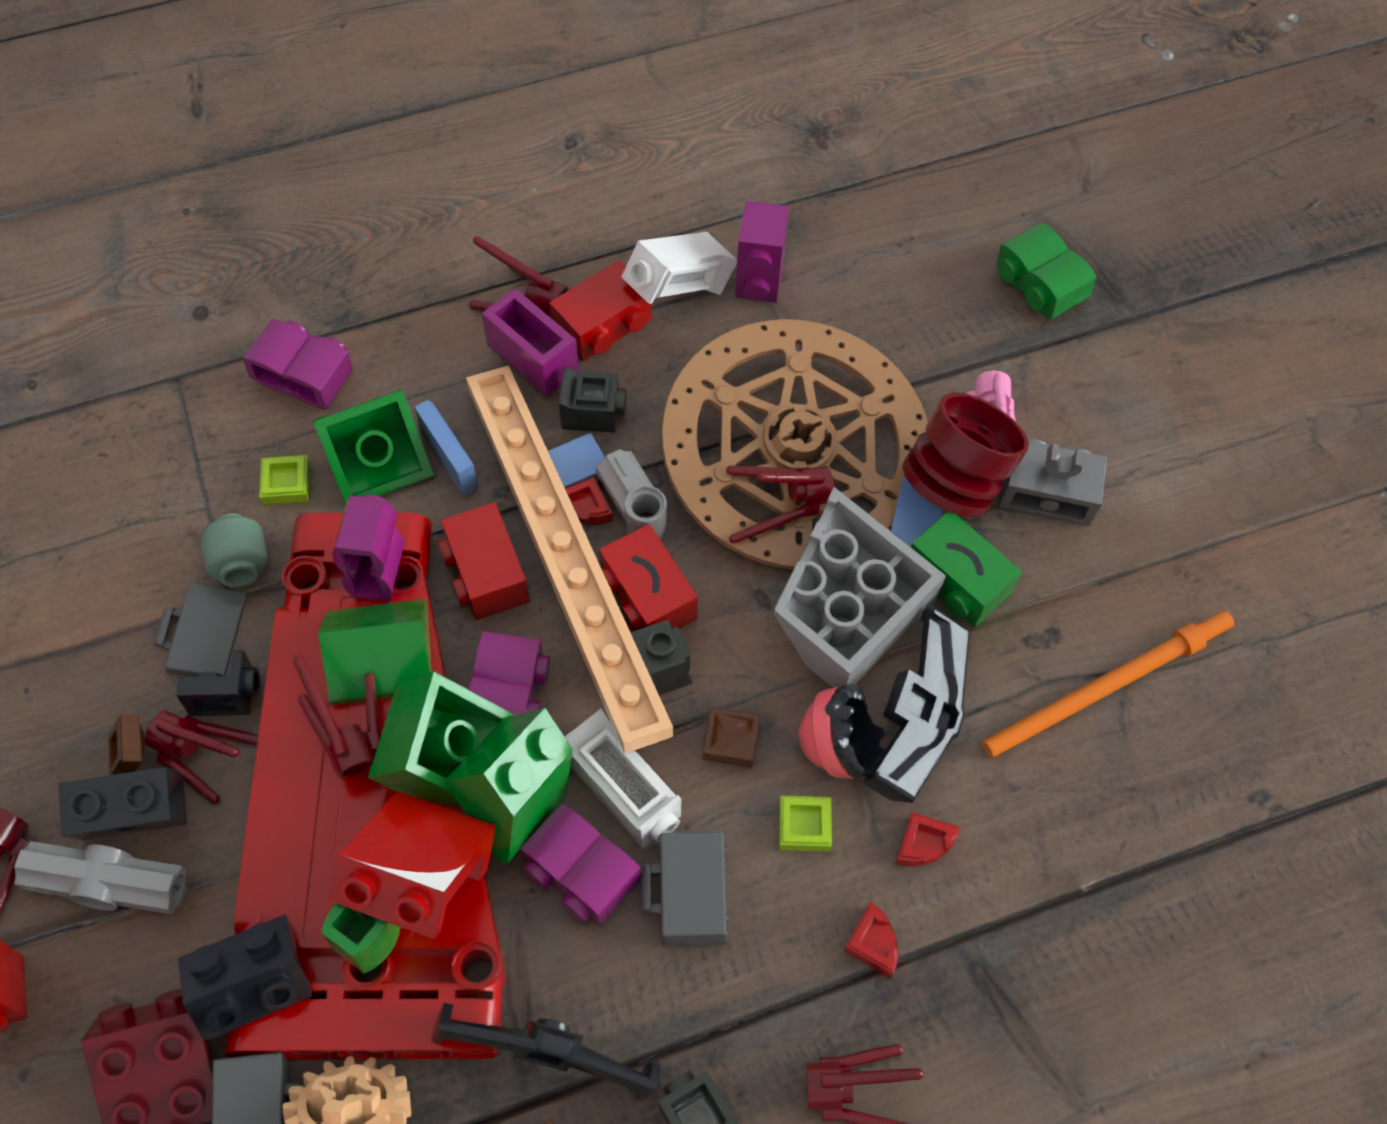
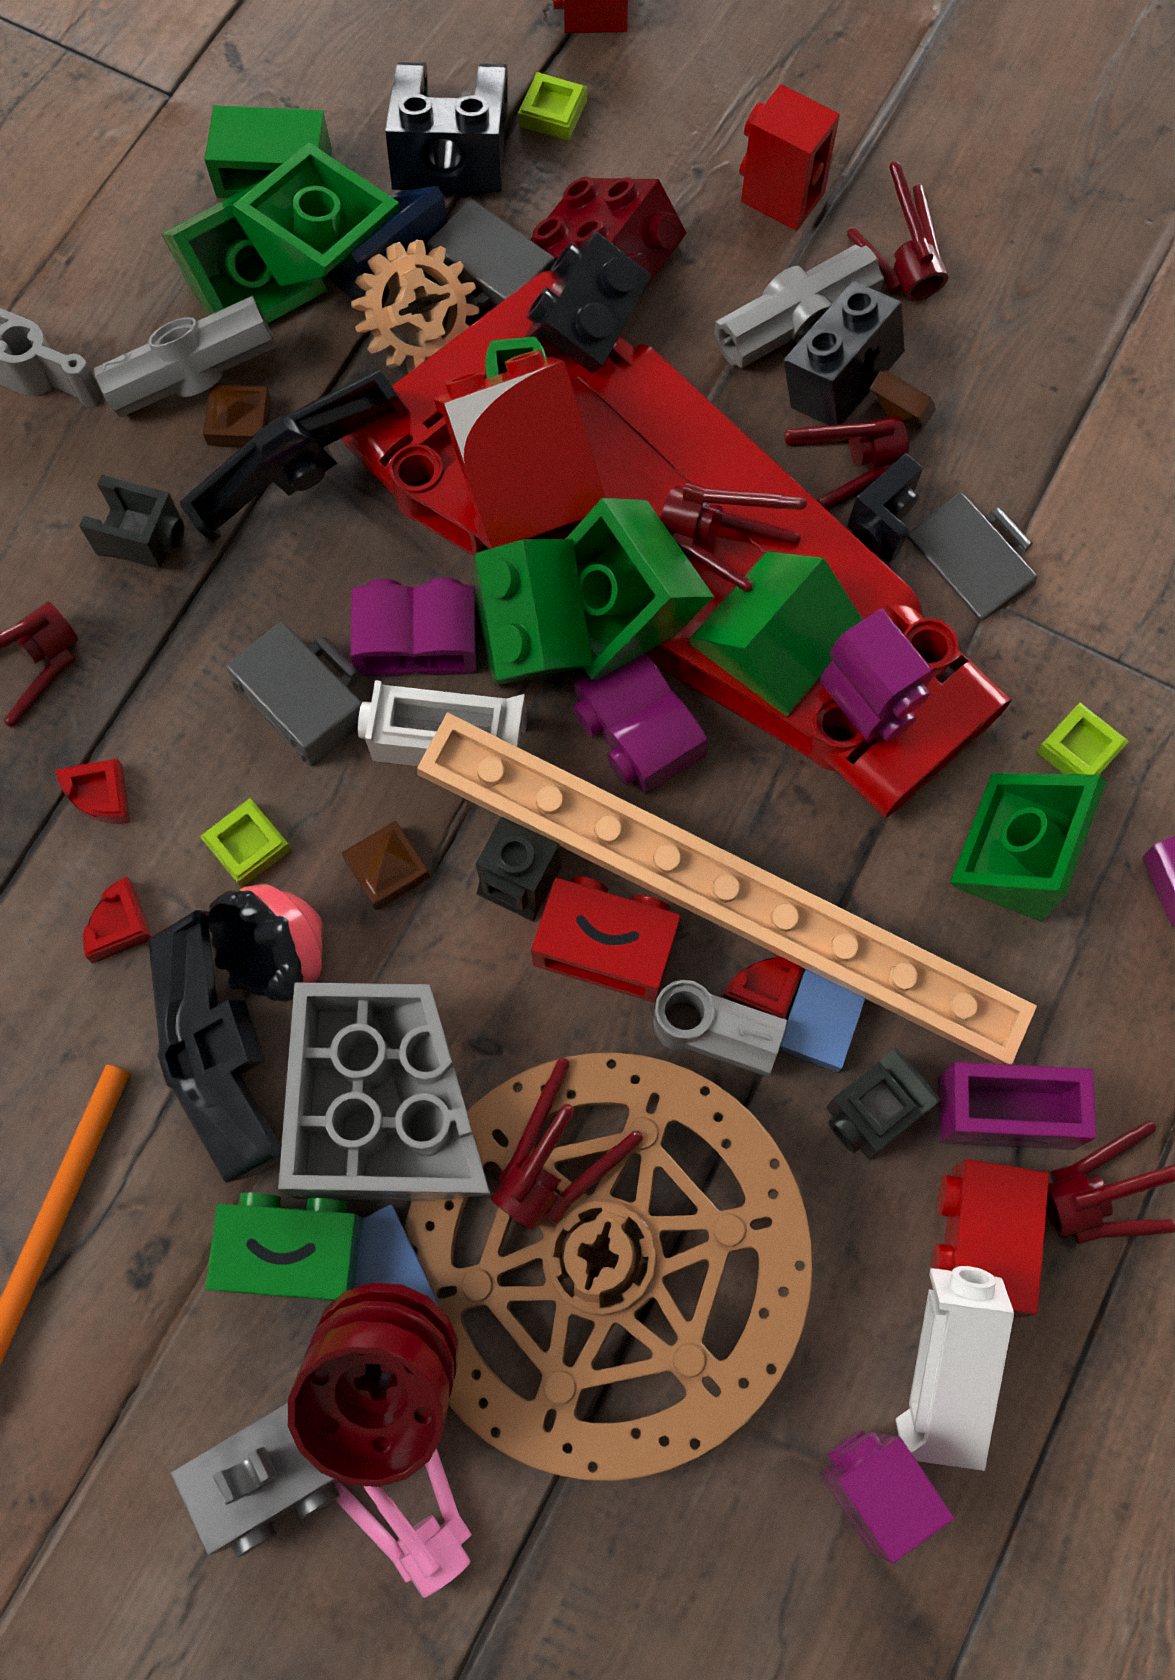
camera: 140 degrees right, 10 degrees up
(234, 550) = (1030, 624): sand green head -> none
(446, 448) = (964, 908): medium blue tile -> none
(485, 562) = (790, 821): red brick -> none

